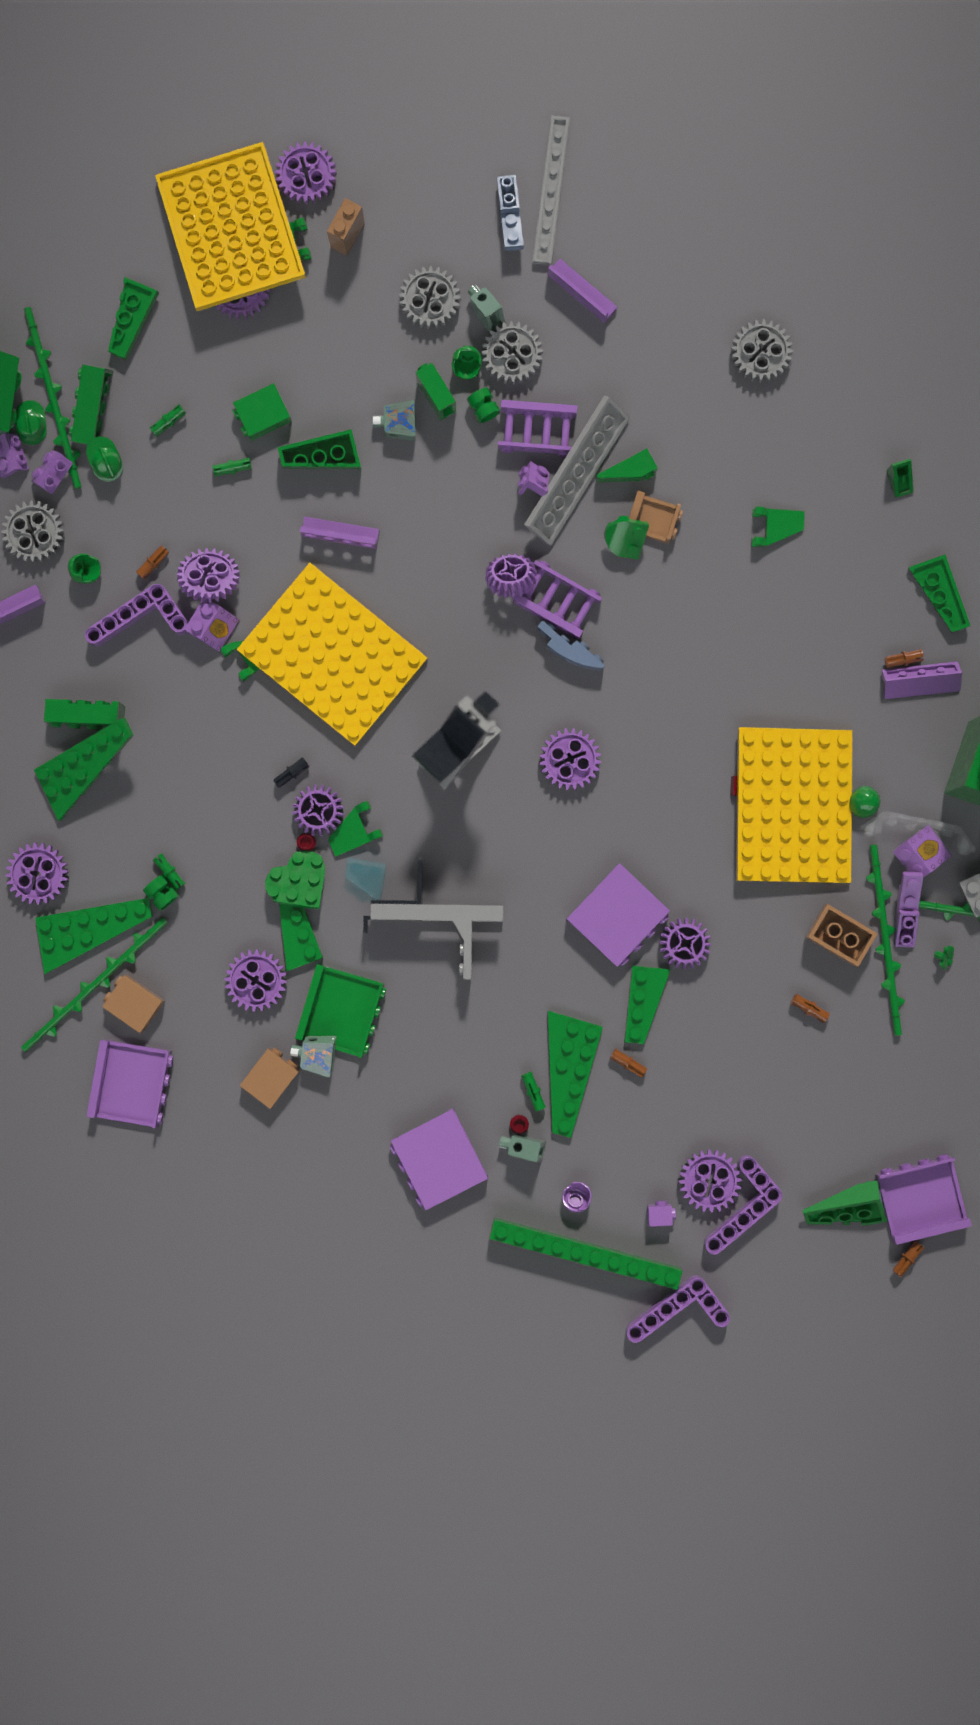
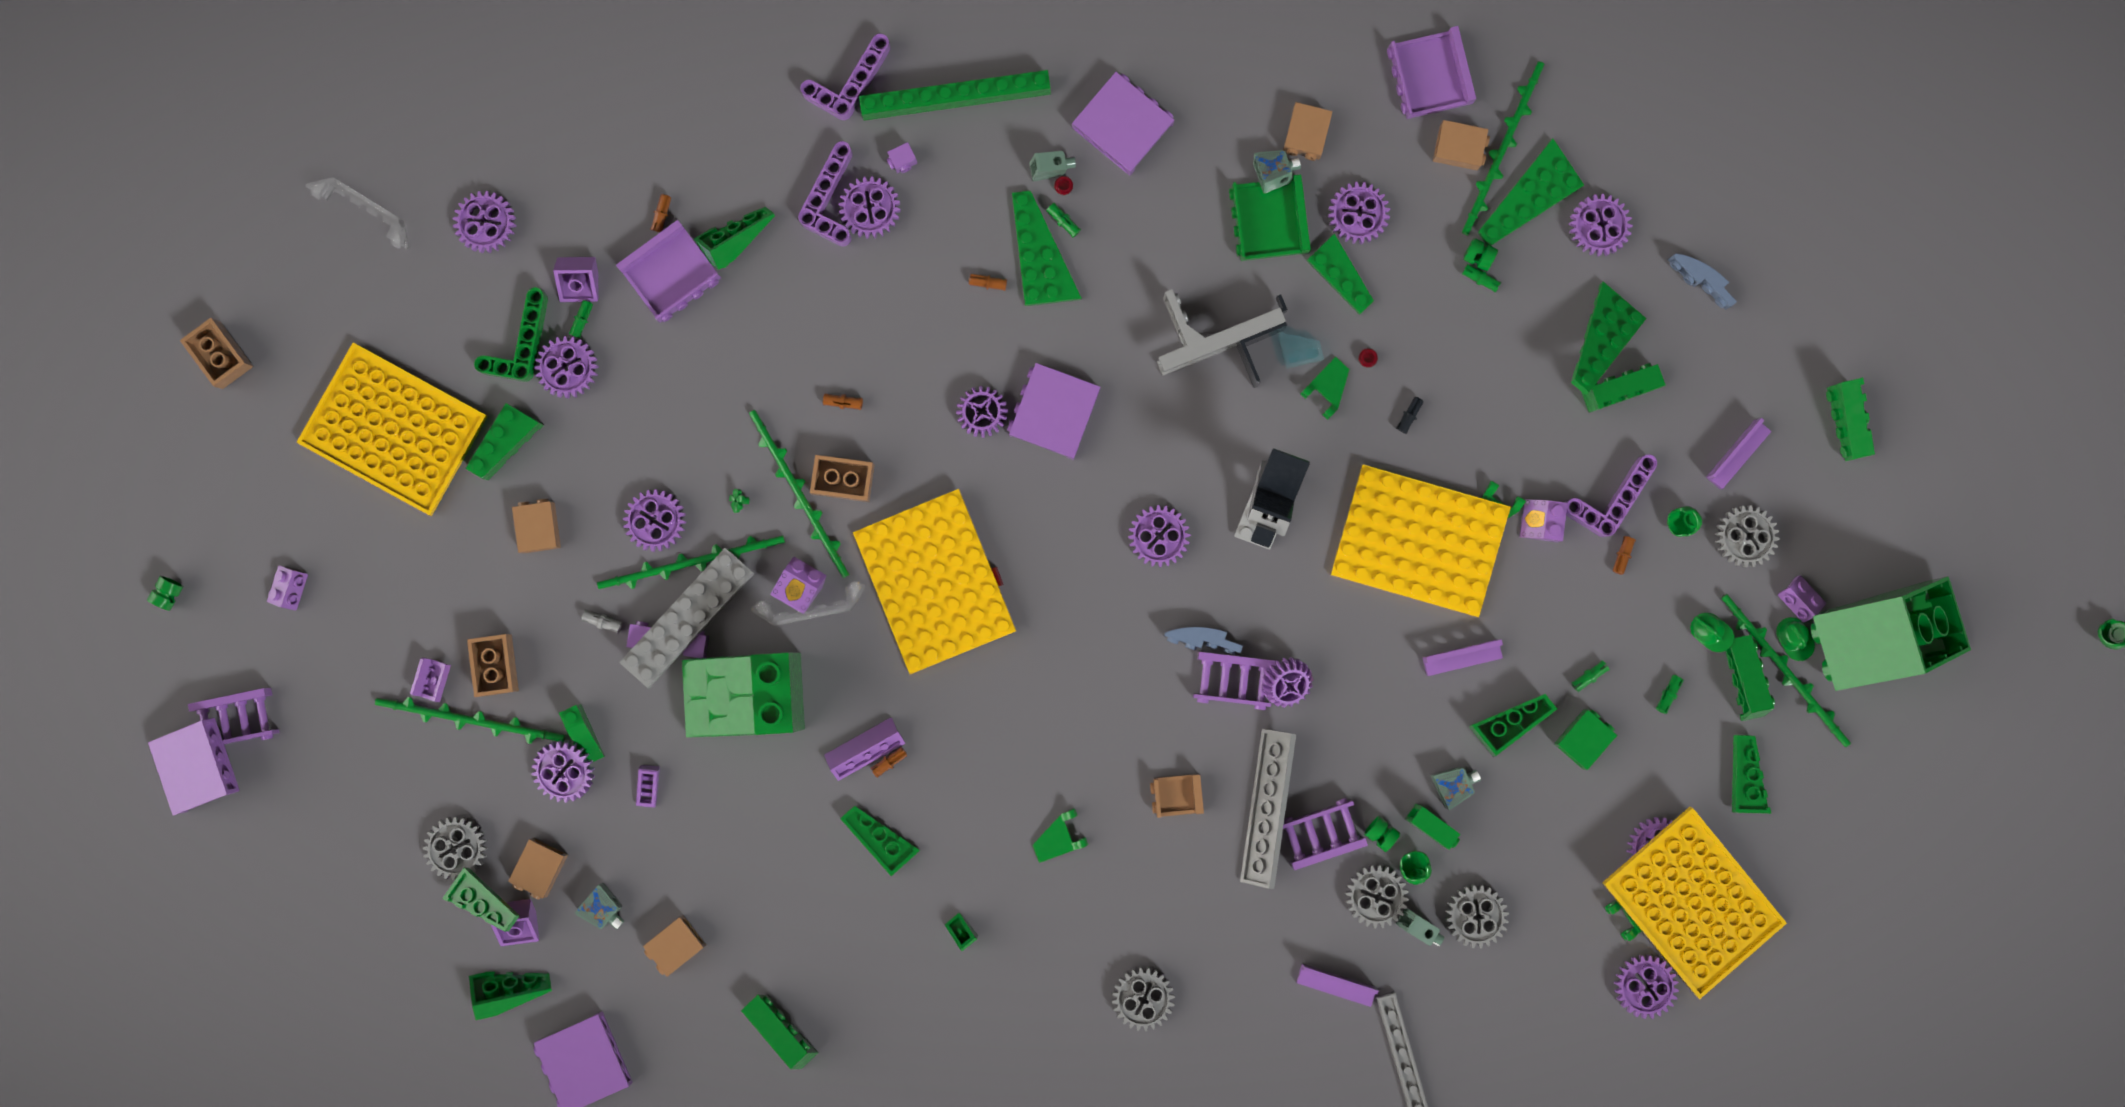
camera: 155 degrees right, 0 degrees up
(51, 471) = (1756, 599): medium lavender bracket -> none
(215, 579) = (1567, 563): medium lavender gear -> none
(298, 882) = (1358, 318): green plate -> none
(326, 806) = (1381, 378): medium lavender gear -> none
(345, 226) = (1586, 948): medium nougat brick -> none
(510, 213) = (1436, 1030): sand blue slope -> none
(534, 478) = (1305, 782): medium lavender bracket -> none
(576, 1197) = (984, 141): medium lavender hair -> none
(626, 537) = (1195, 765): green slope -> none
(632, 469) = (1216, 833): green slope -> none
(644, 996) = (999, 351): green wing -> none
(864, 802) = (870, 612): green hair -> none
(907, 909) = (790, 528): medium lavender slope -> none

